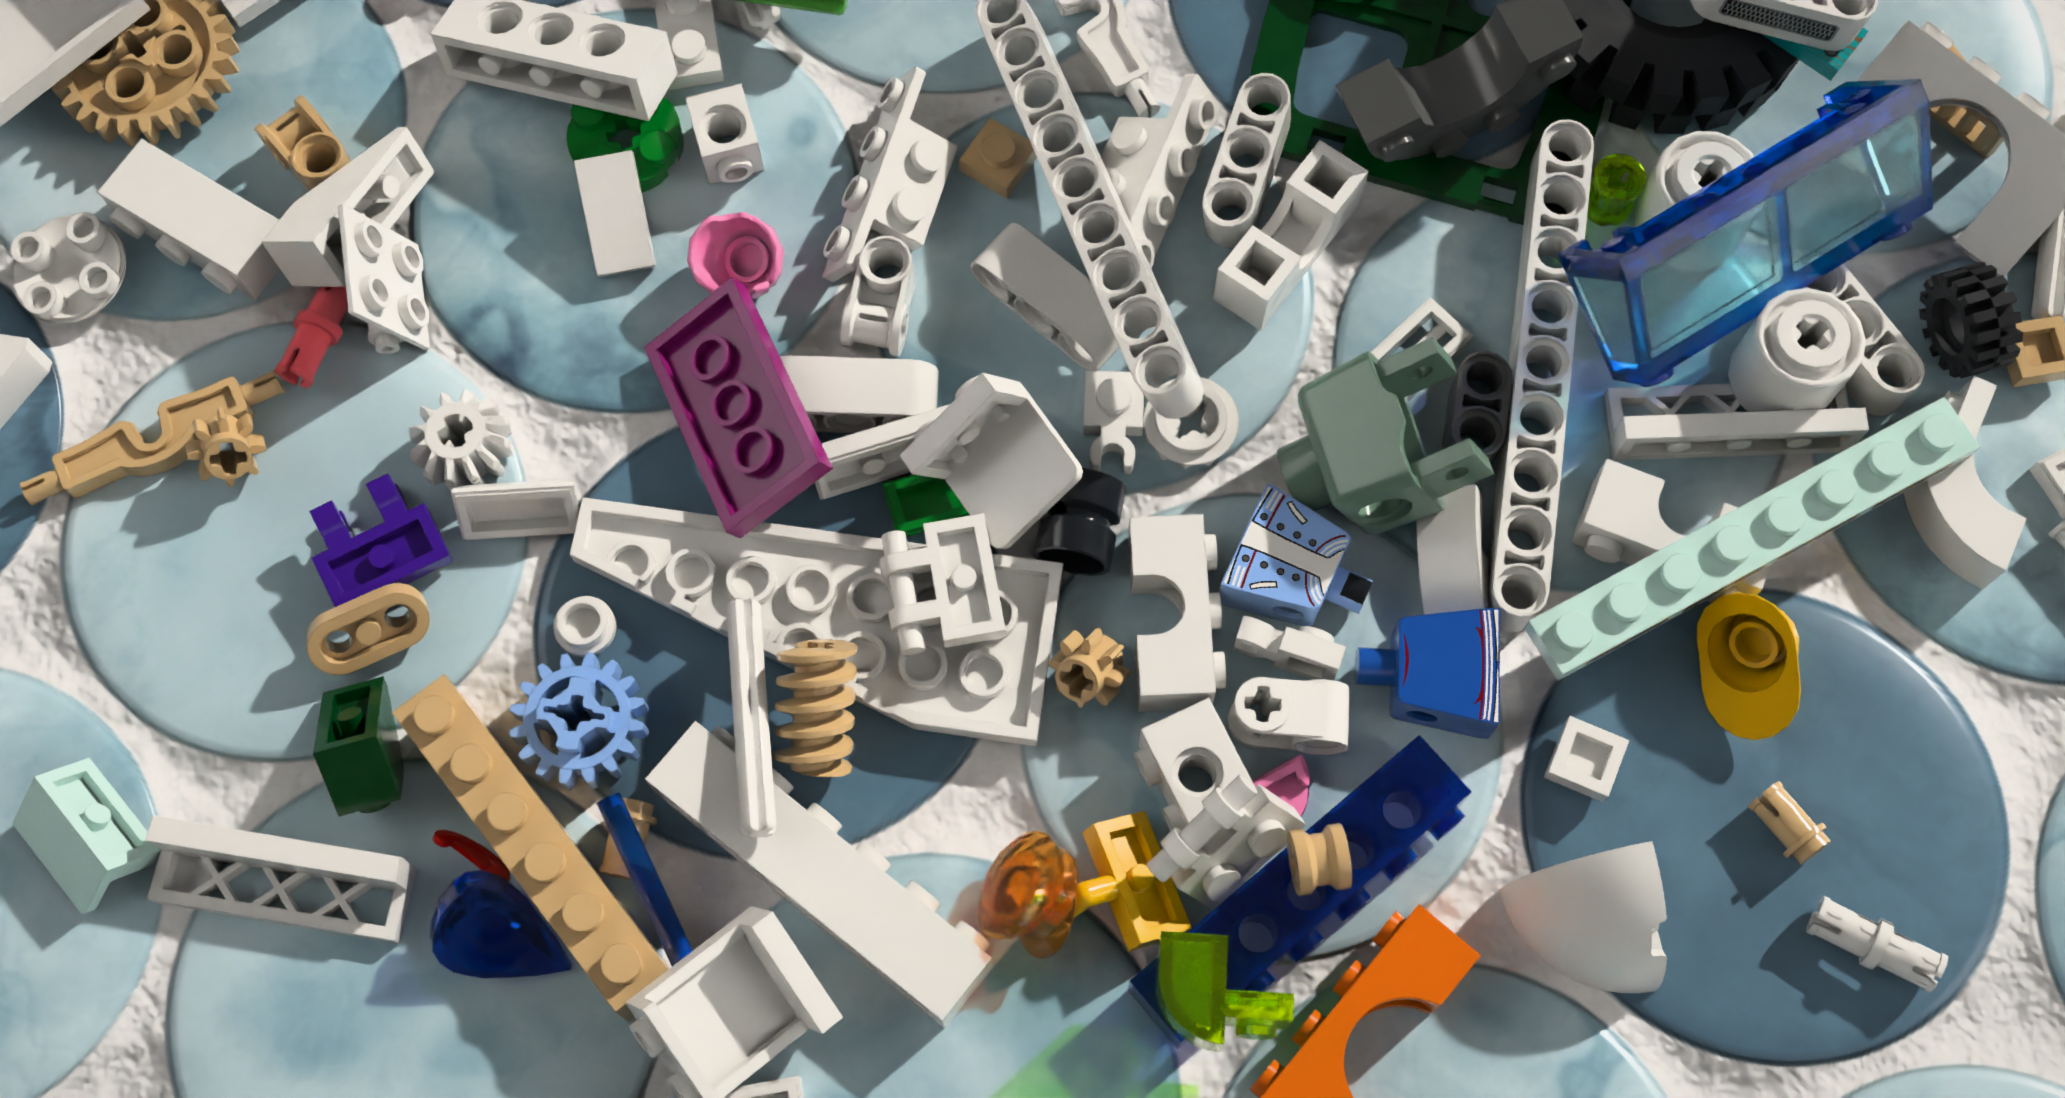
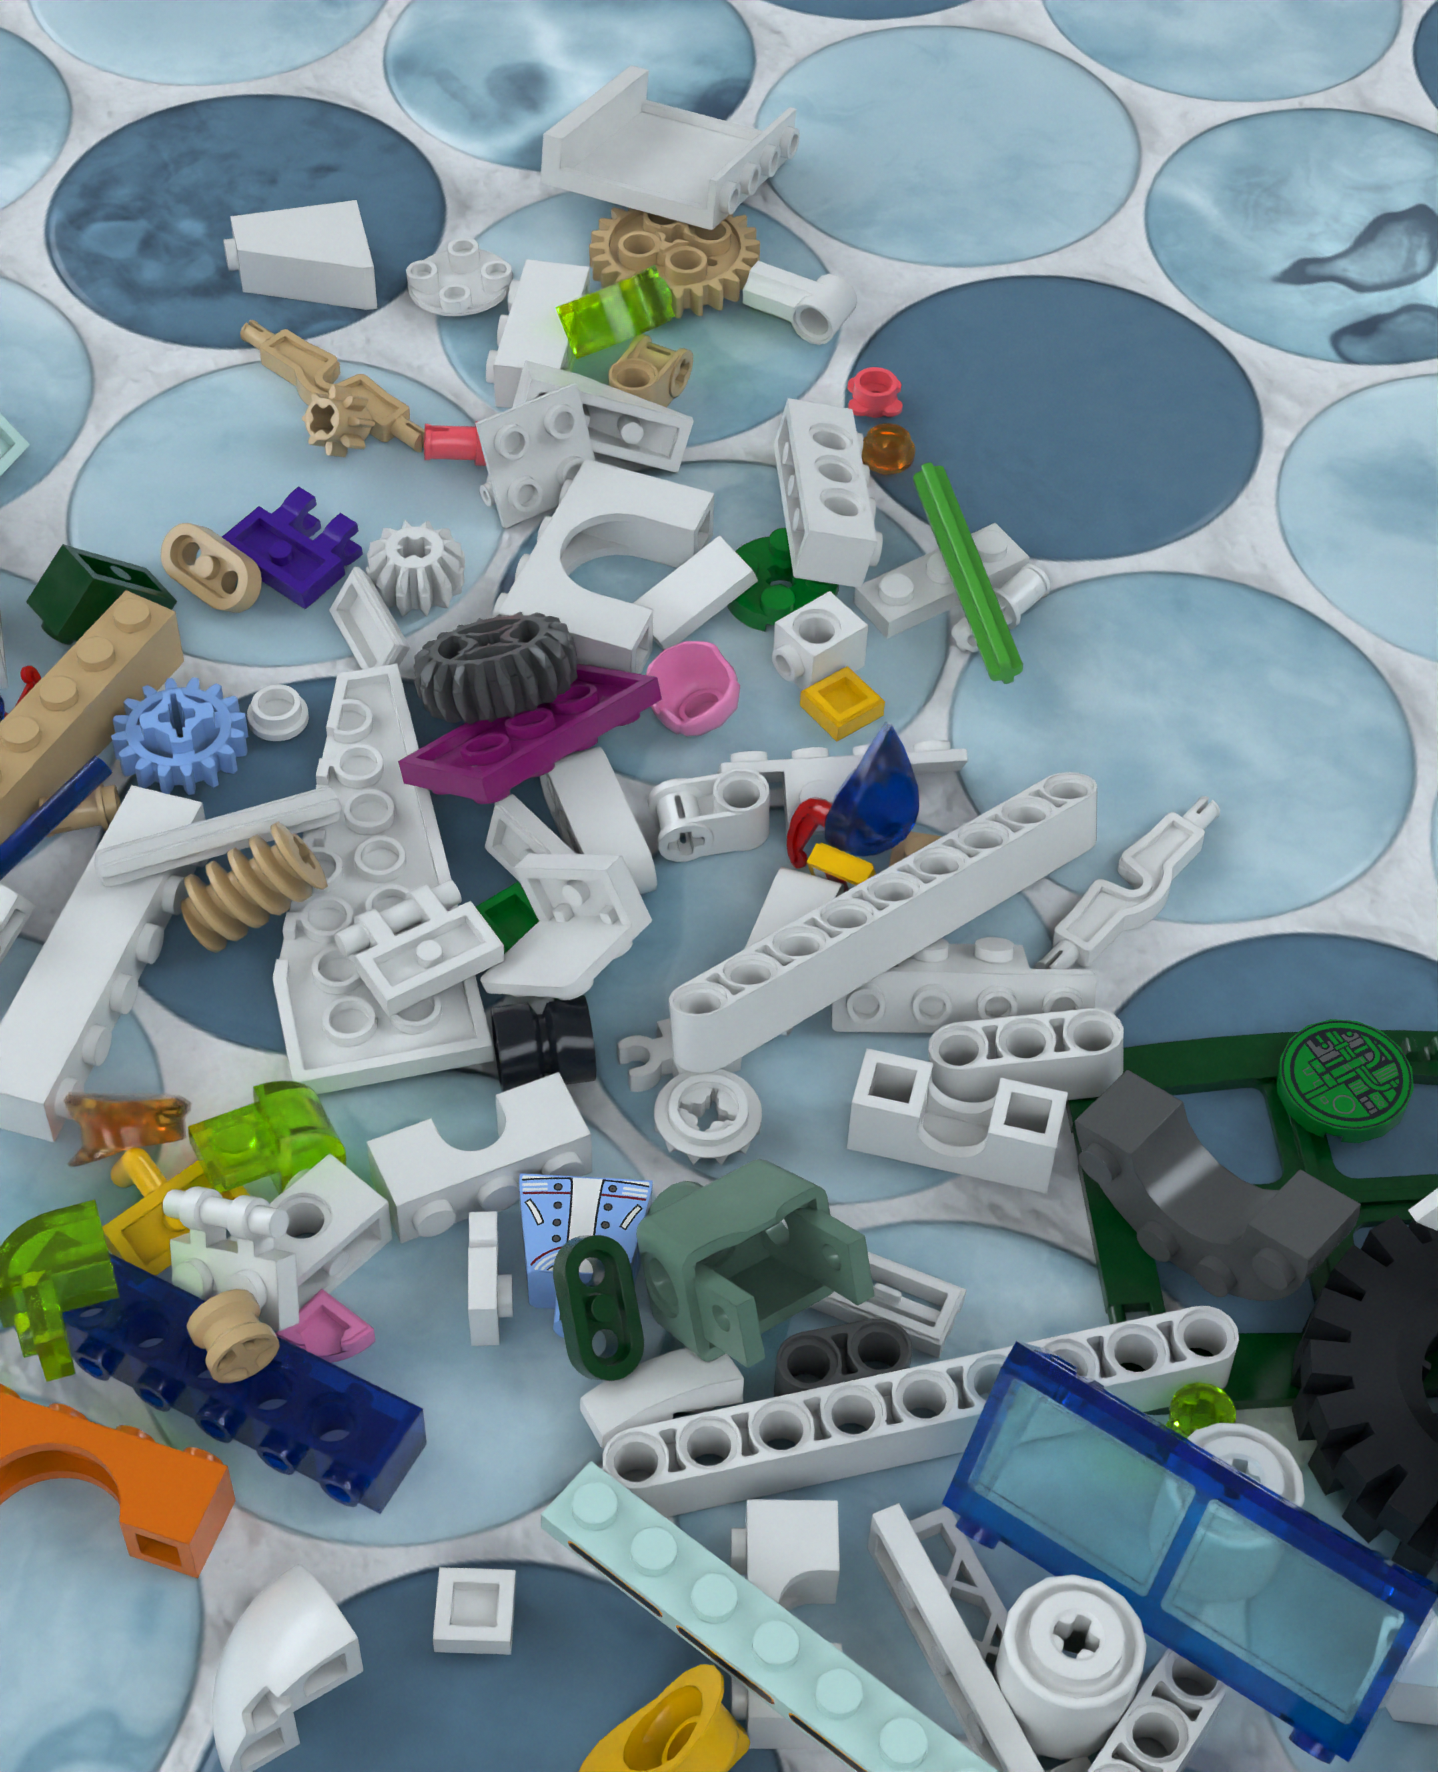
camera: 65 degrees right, 20 degrees down
(232, 137) = (616, 312): none -> clear neon green brick
(576, 345) = (600, 516): none -> white arch
(647, 395) = (495, 667): none -> dark grey gear
(790, 146) = (842, 703): none -> yellow tile
(952, 179) = (870, 809): none -> clear blue piece
(995, 218) = (839, 866): none -> yellow tile
(1089, 667) = (387, 1099): tan gear -> none
(1106, 779) = (270, 1137): none -> clear neon green brick
(1300, 715) = (411, 1304): white piece -> none
(1379, 567) = (602, 1304): none -> dark green plate
(1440, 671) = (519, 1427): blue torso -> none

